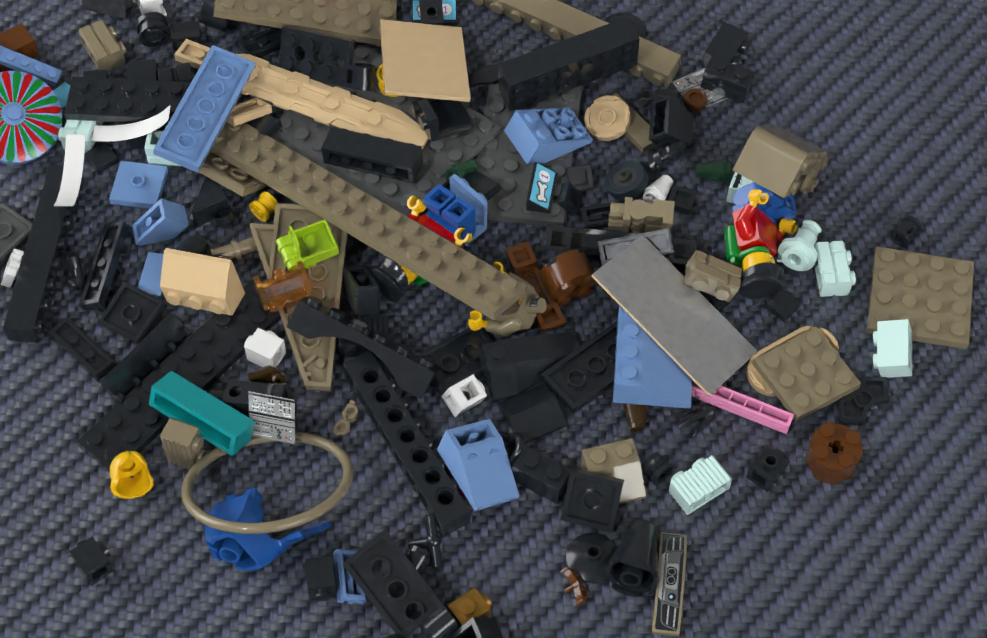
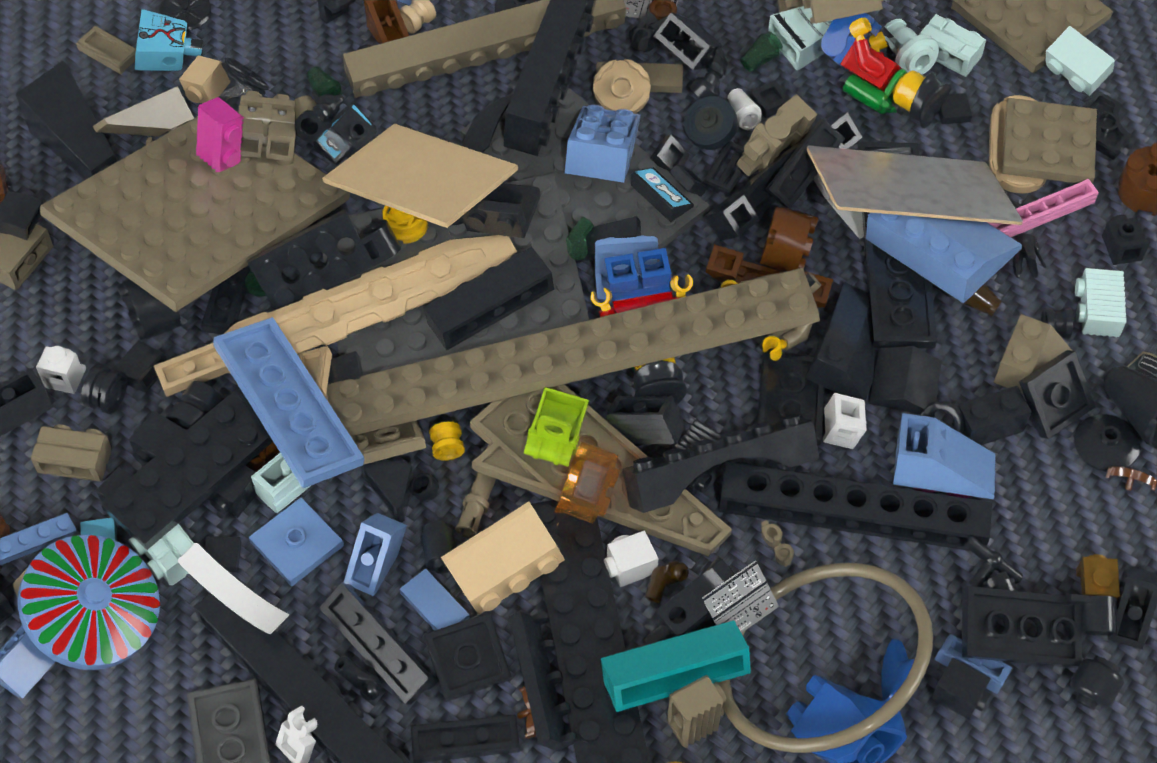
camera: 50 degrees left, 0 degrees up
(132, 130) = (235, 488): white sticker -> none
(712, 276) = (893, 129): dark tan brick -> none

